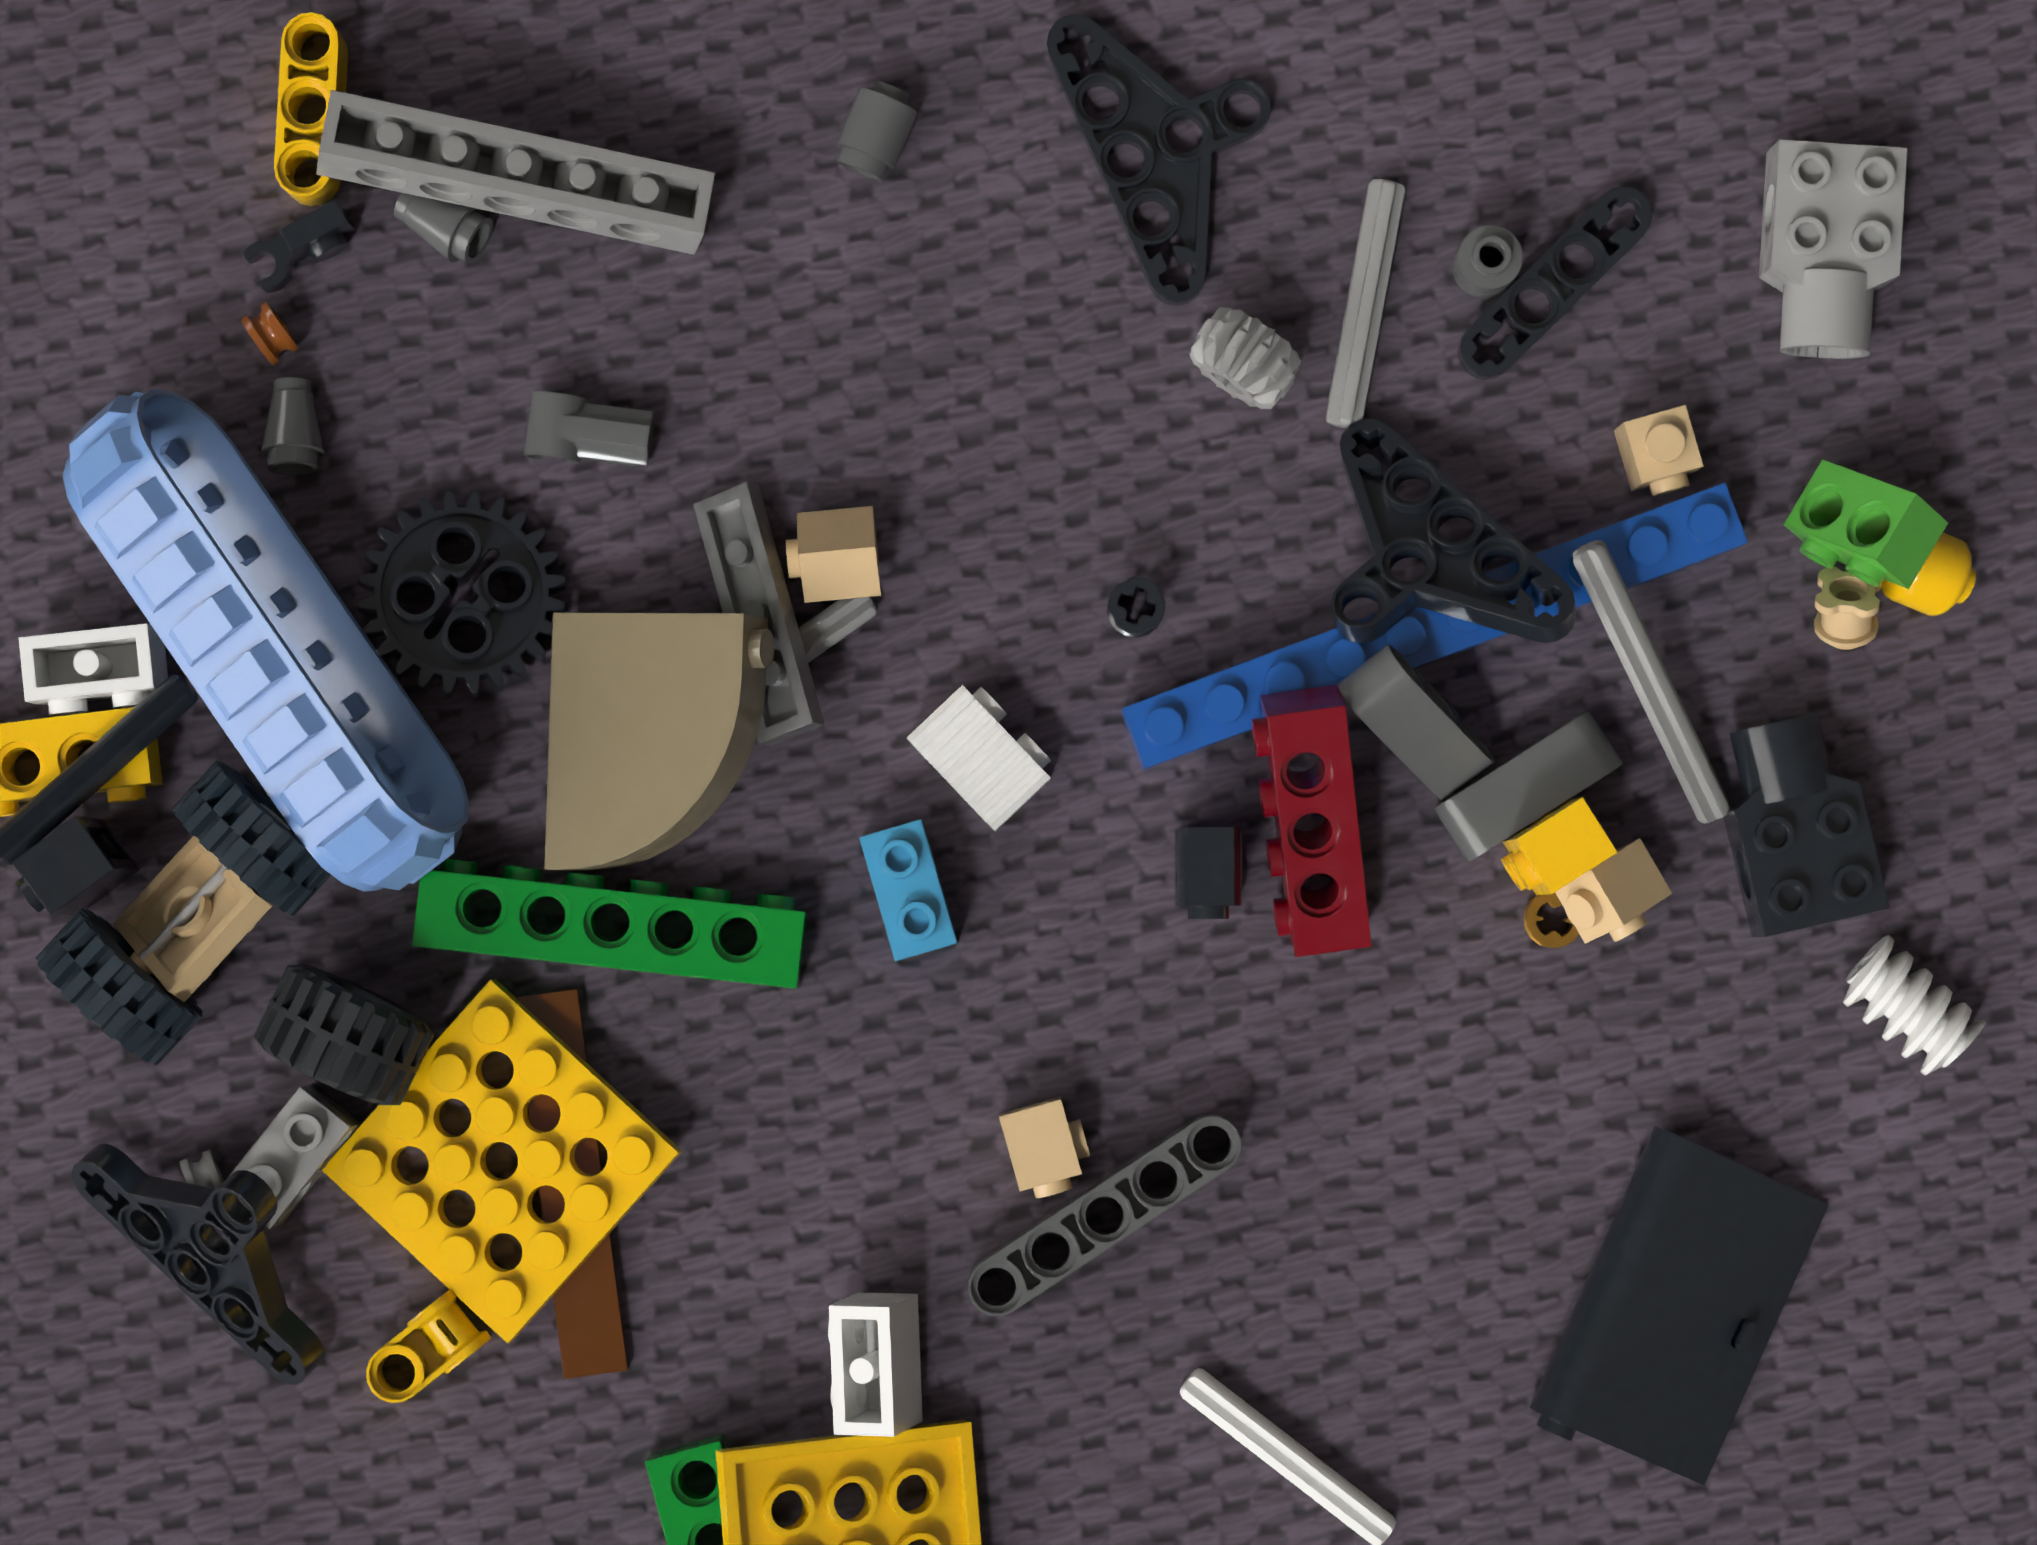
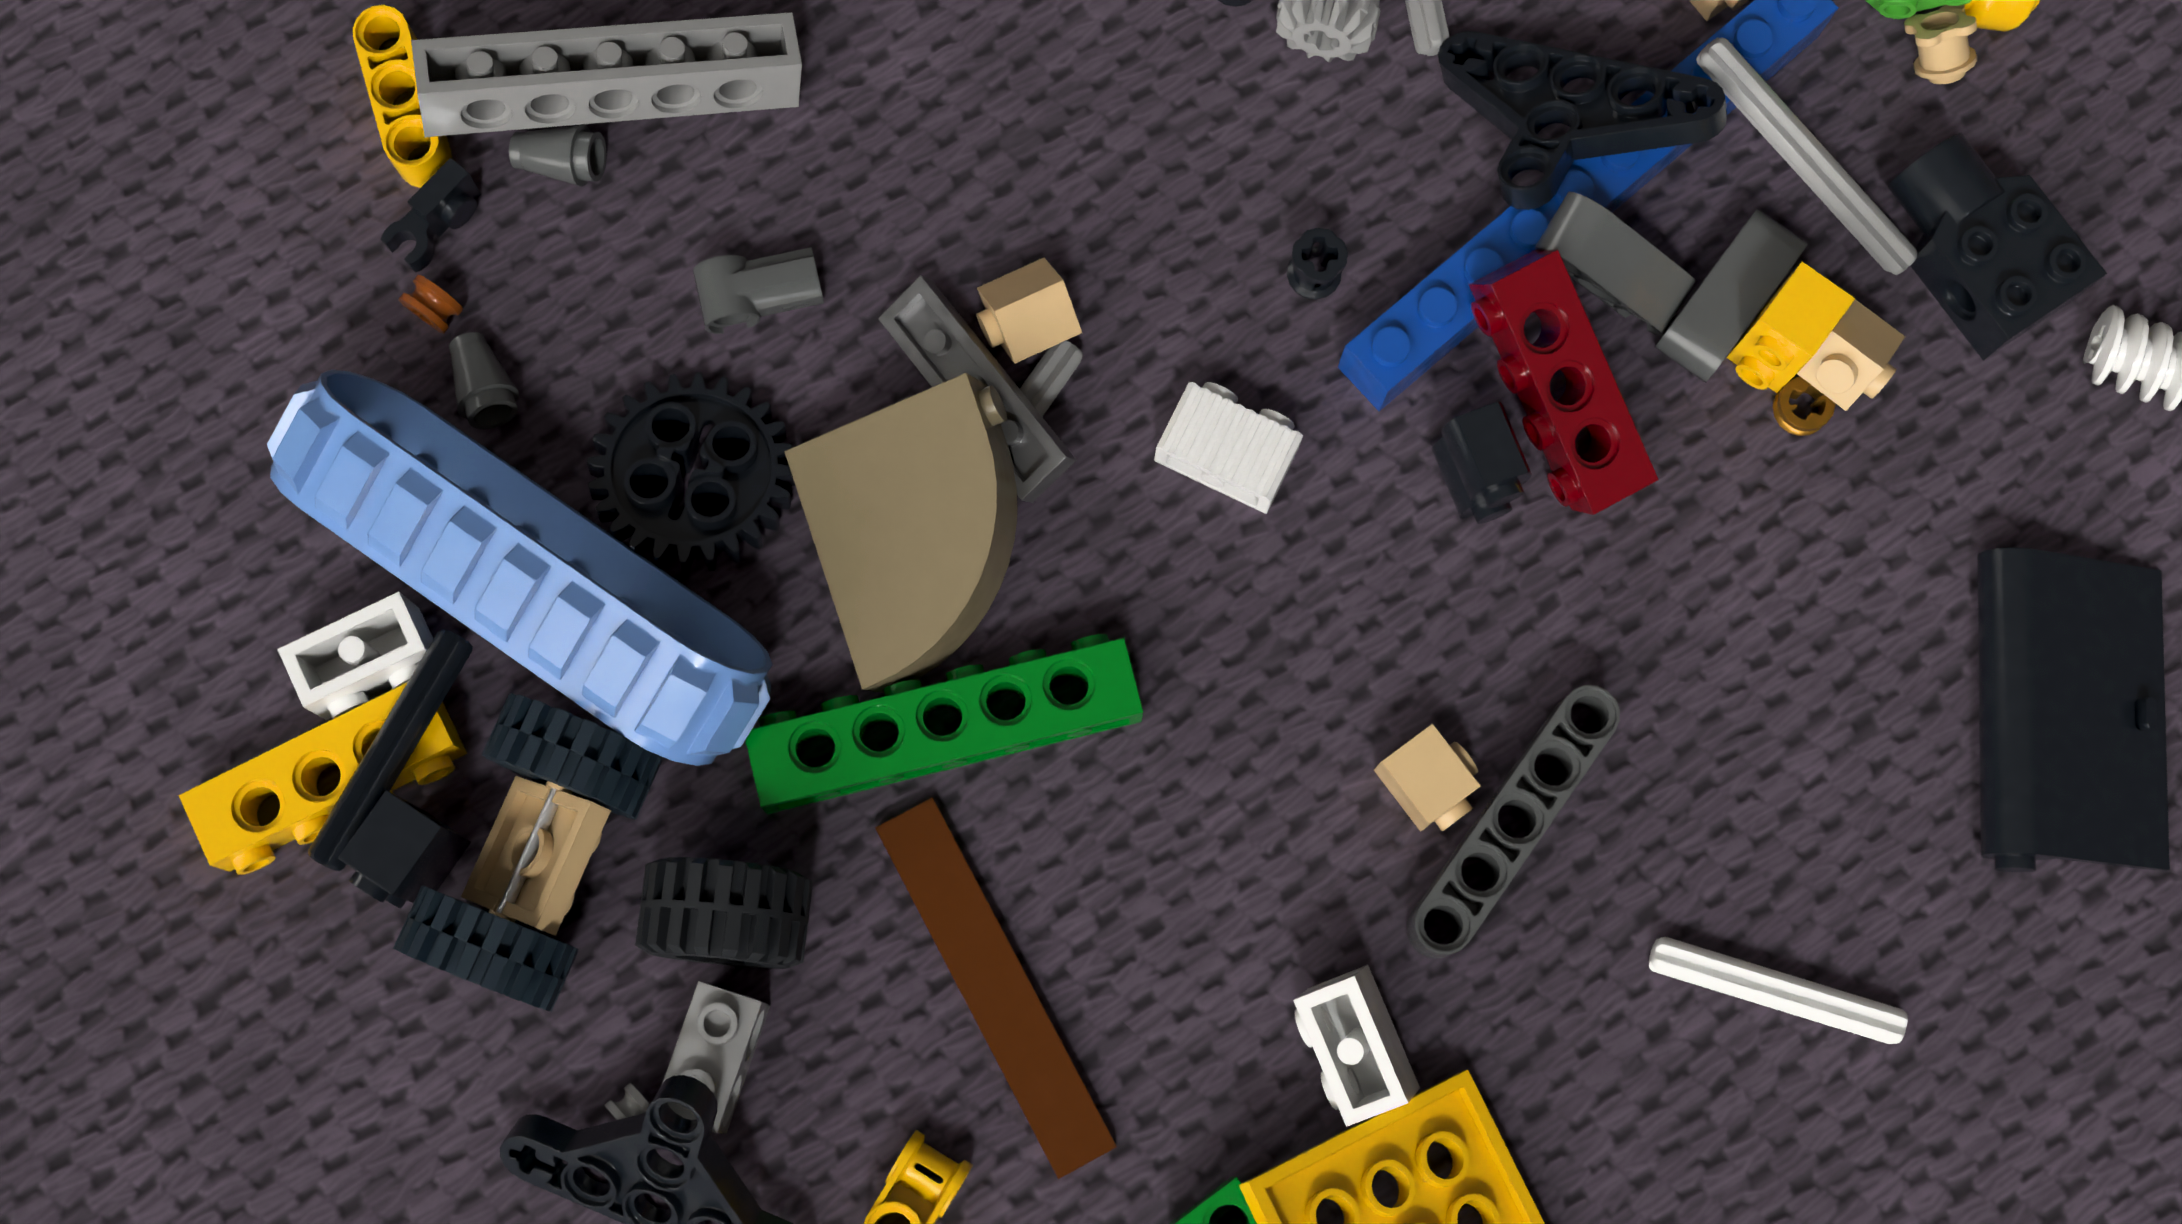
camera: 25 degrees left, 10 degrees down
(593, 1203) = (1000, 1055): yellow piece -> none
(908, 890) = (1211, 587): dark azure brick -> none

